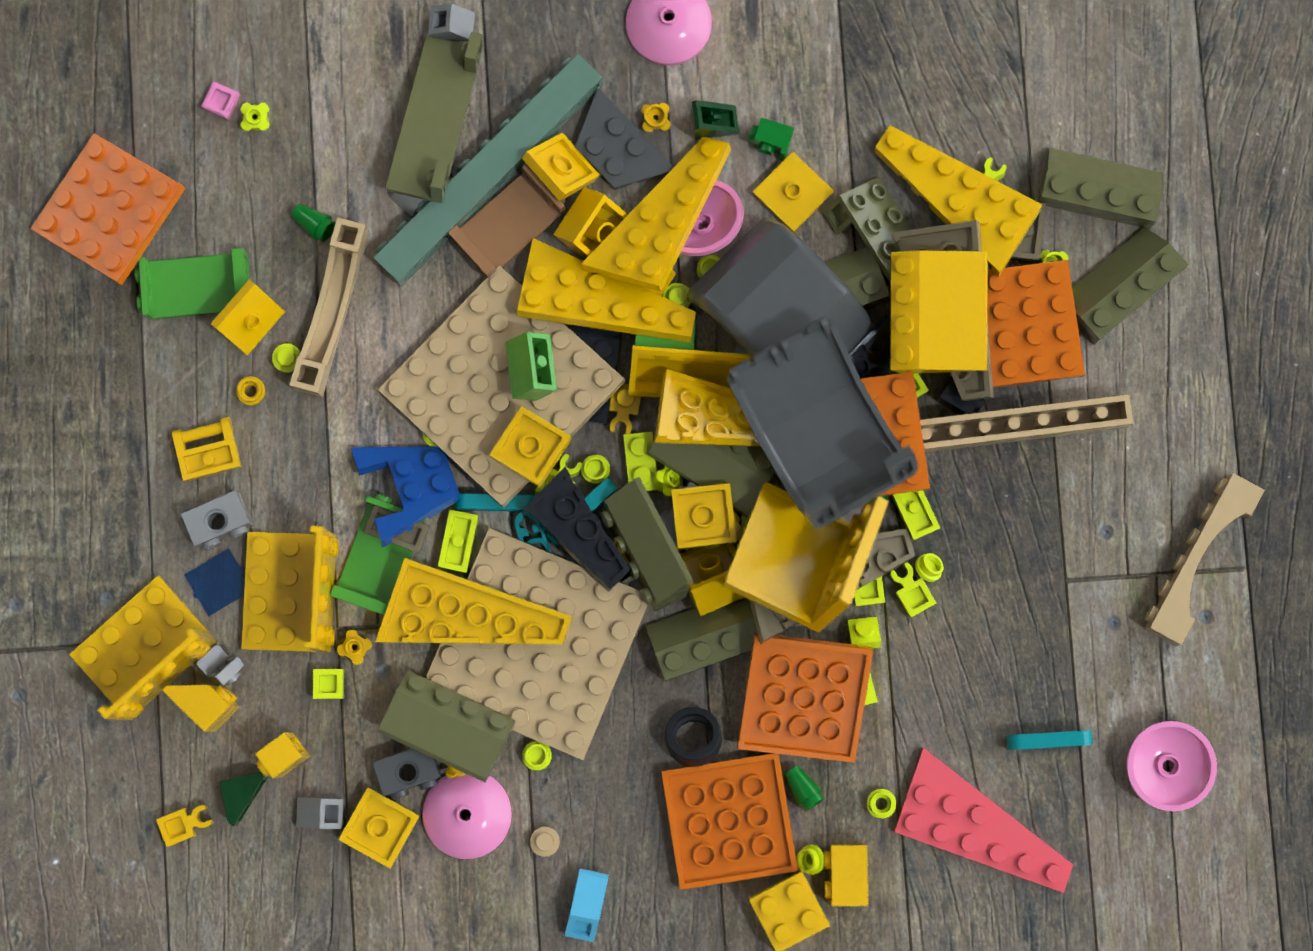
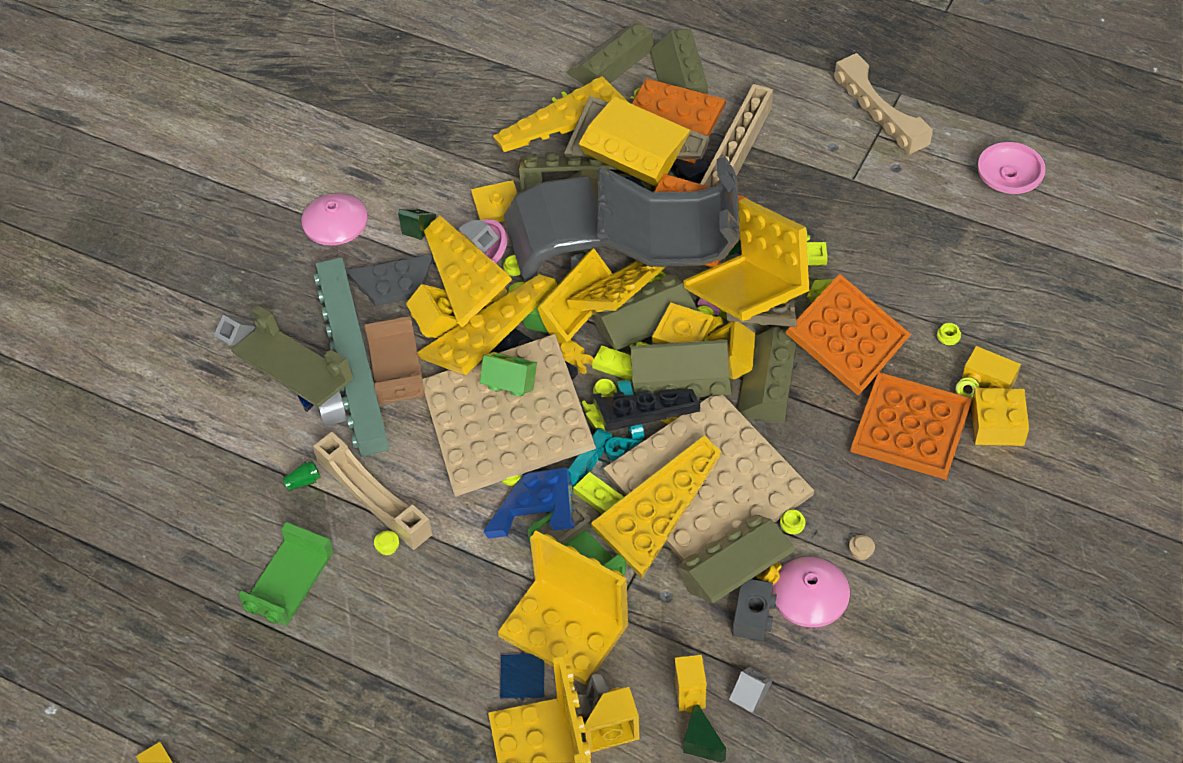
camera: 60 degrees left, 30 degrees down
(108, 208) = (185, 602): orange plate -> none
(199, 520) = (475, 632): light grey brick -> none
(210, 458) = (422, 631): yellow plate -> none
(220, 100) = (168, 495): bright pink tile -> none
(242, 387) = (392, 572): yellow plate -> none
(248, 317) = (338, 544): yellow plate -> none
(261, 122) = (201, 482): neon yellow plate -> none
(328, 683) = (652, 633): neon yellow plate -> none
(362, 646) = (641, 605): yellow plate -> none
(379, 827) = (787, 652): yellow plate -> none
(530, 446) = (565, 400): yellow plate -> none
(560, 166) = (389, 308): yellow plate -> none
(586, 905) = (923, 534): medium azure slope -> none
(650, 111) = (390, 249): yellow plate -> none
(693, 714) = (831, 402): black tyre -> none
(704, 215) = (479, 234): none -> light grey brick
(771, 137) = (454, 193): green brick -> none
(804, 789) = (913, 371): green cone -> none
(963, 821) = (988, 297): coral wing -> none
(1049, 740) = (956, 226): teal beam -> none

